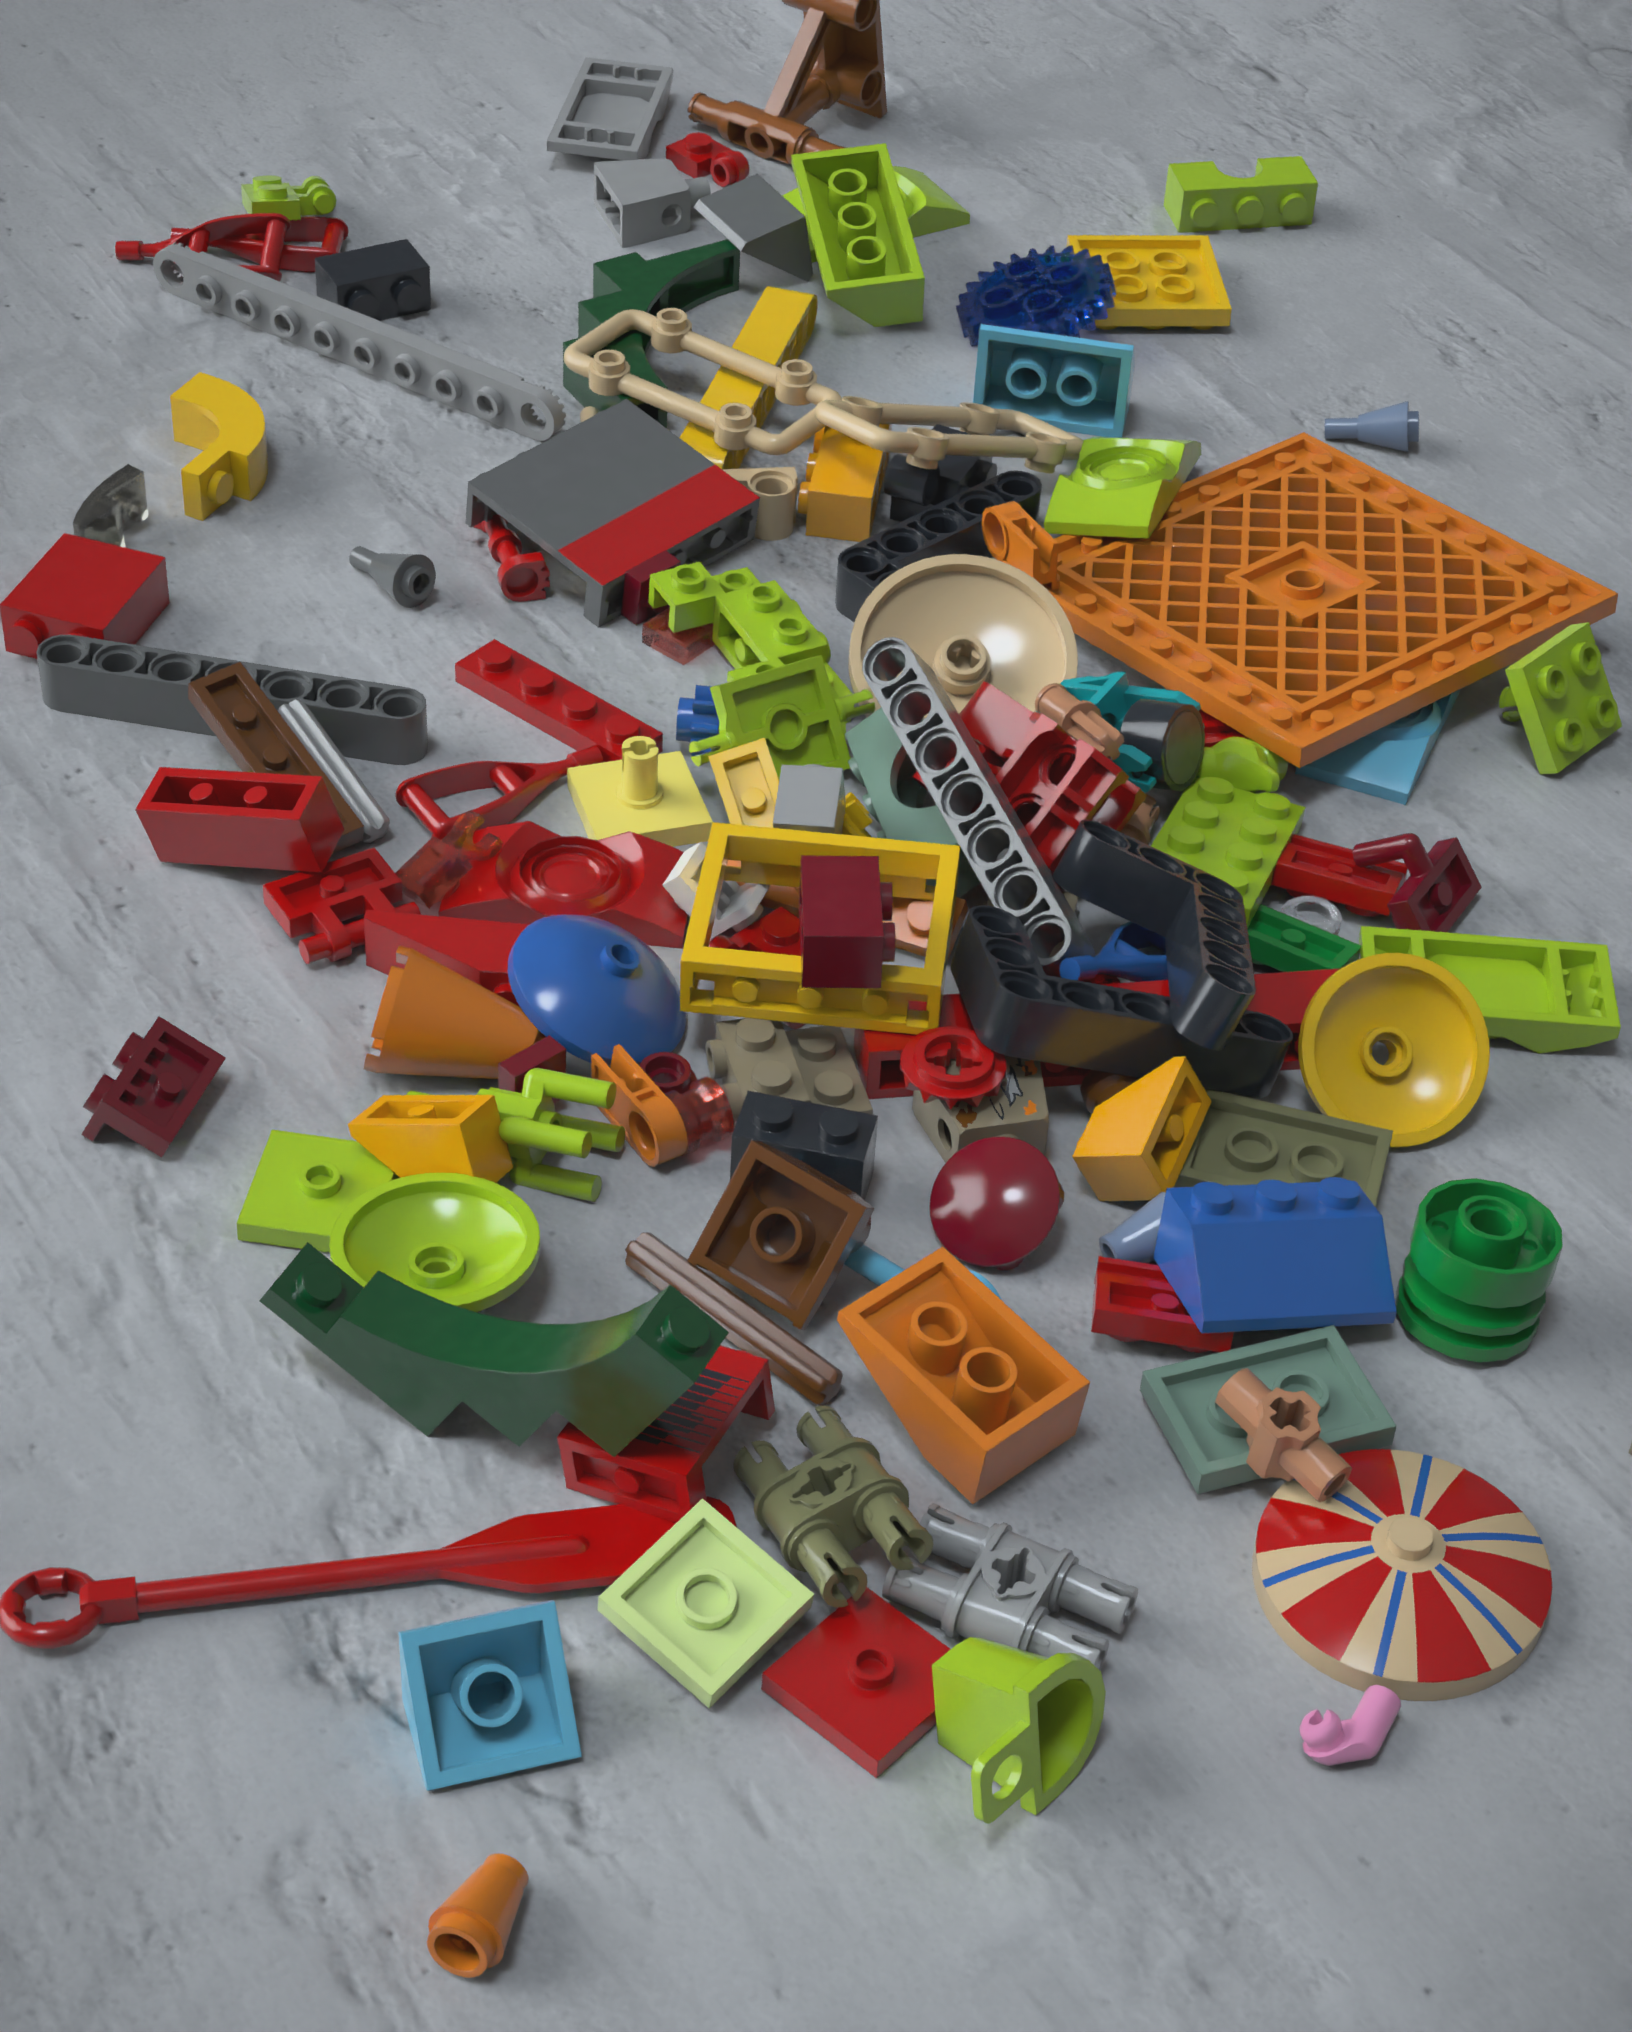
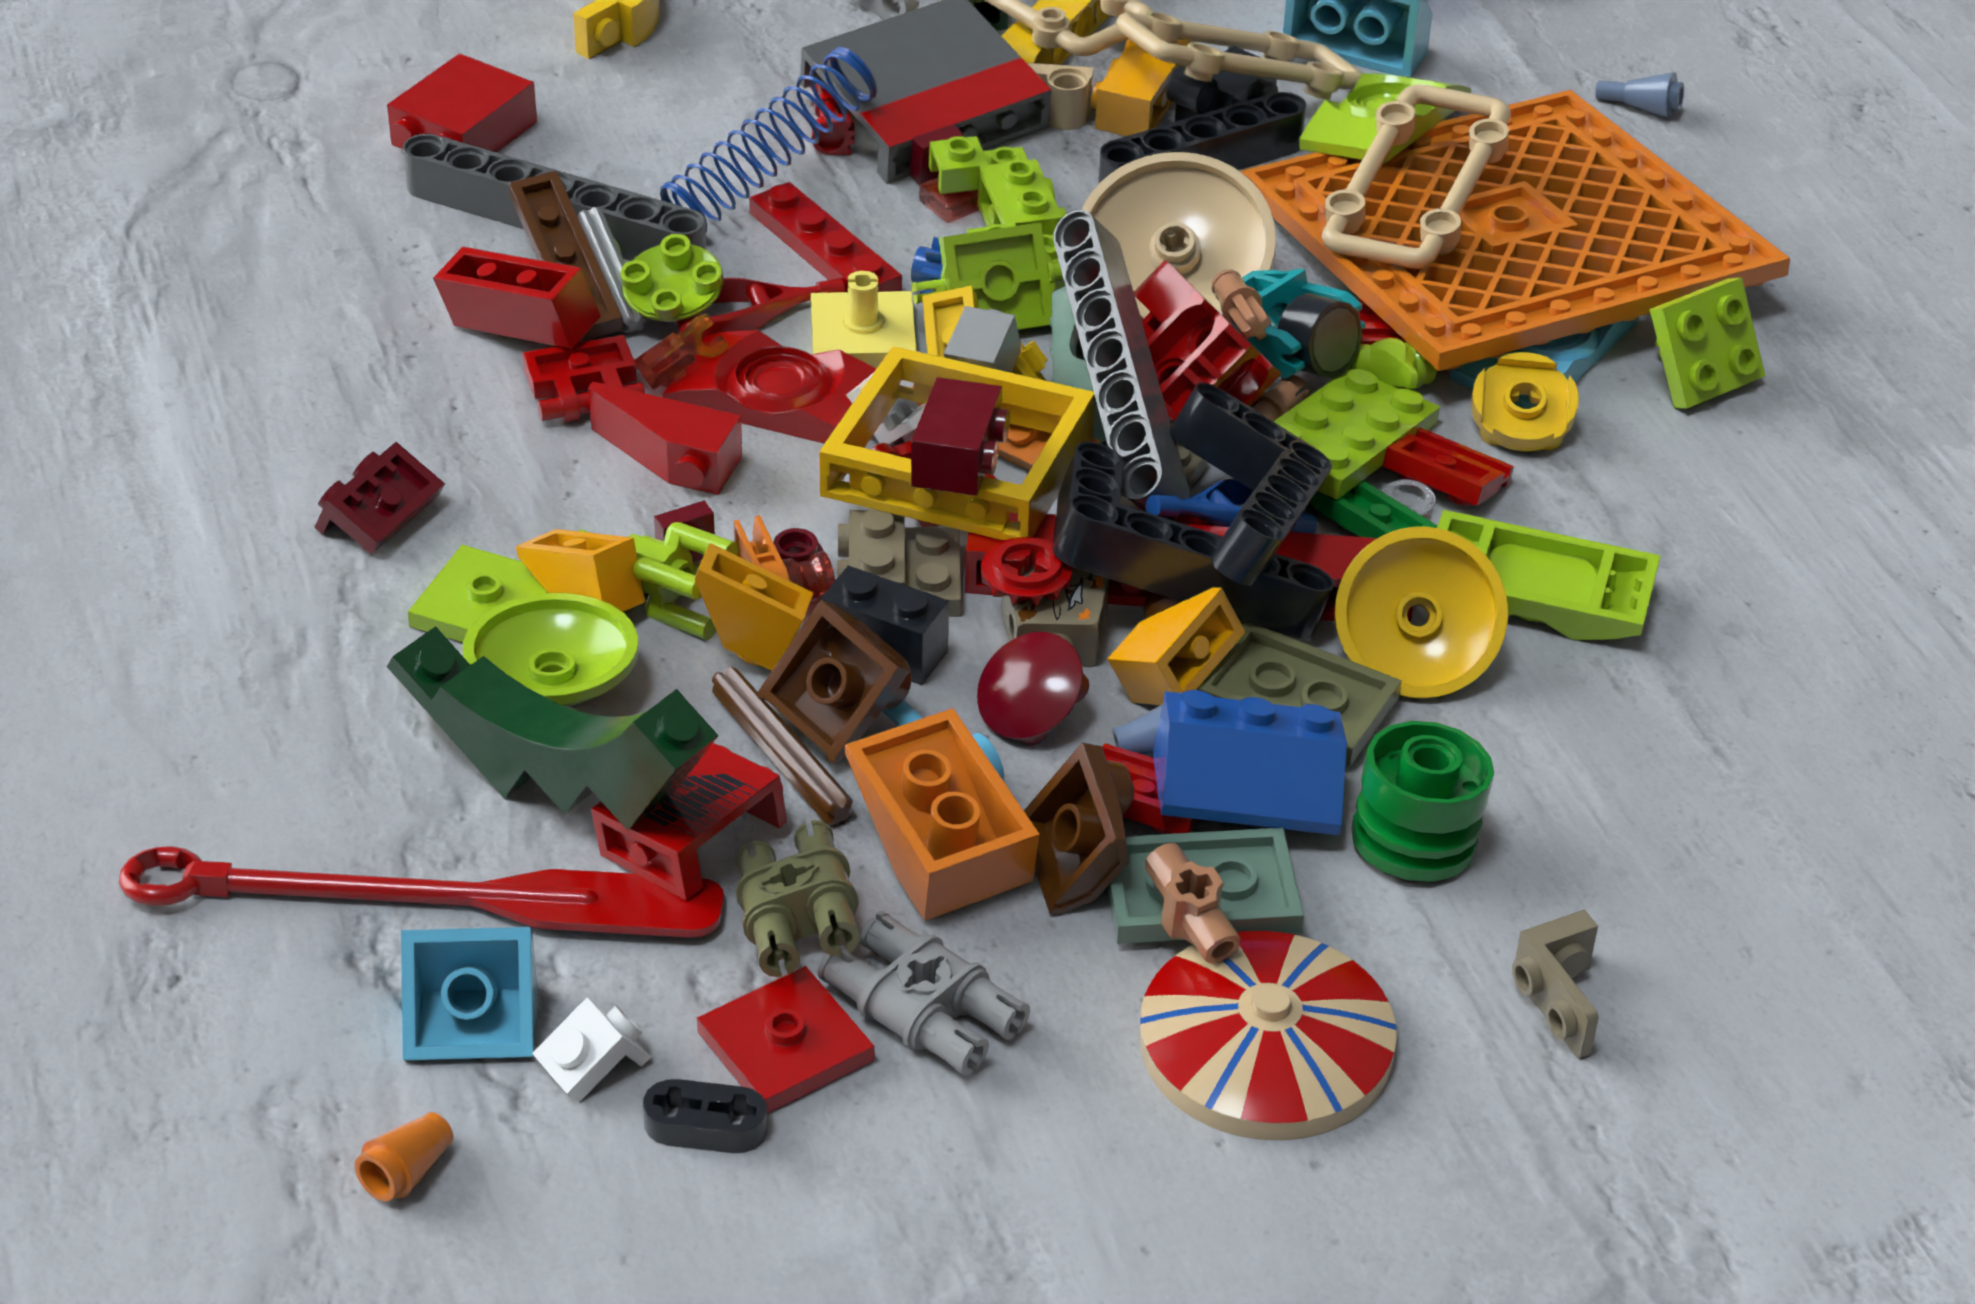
camera: 15 degrees right, 0 degrees up
(113, 507) = (510, 39): clear smoke slope -> none
(404, 576) = (727, 117): dark grey cone -> none
(412, 775) = (672, 280): none -> lime dish
(444, 1023) = (620, 477): orange cone -> none
(528, 510) = (693, 201): none -> blue piece
(595, 988) = (755, 465): blue dish -> none
(651, 1735) = (589, 1047): none -> white bracket
(656, 1158) = (750, 606): none -> light orange slope
(705, 1602) = (668, 955): yellowish green plate -> none
(813, 1794) = (705, 1116): none -> black beam
(1016, 1720) = (886, 1086): lime container -> none
(1021, 542) = (1264, 155): orange piece -> none
(1134, 1366) = (1081, 828): none -> reddish brown slope
(1246, 604) = (1438, 227): none -> tan bar
(1353, 1739) = (1170, 1154): bright pink arm -> none
(1398, 760) = (1520, 428): none -> yellow plate
(1438, 883) = (1525, 488): dark red plate -> none

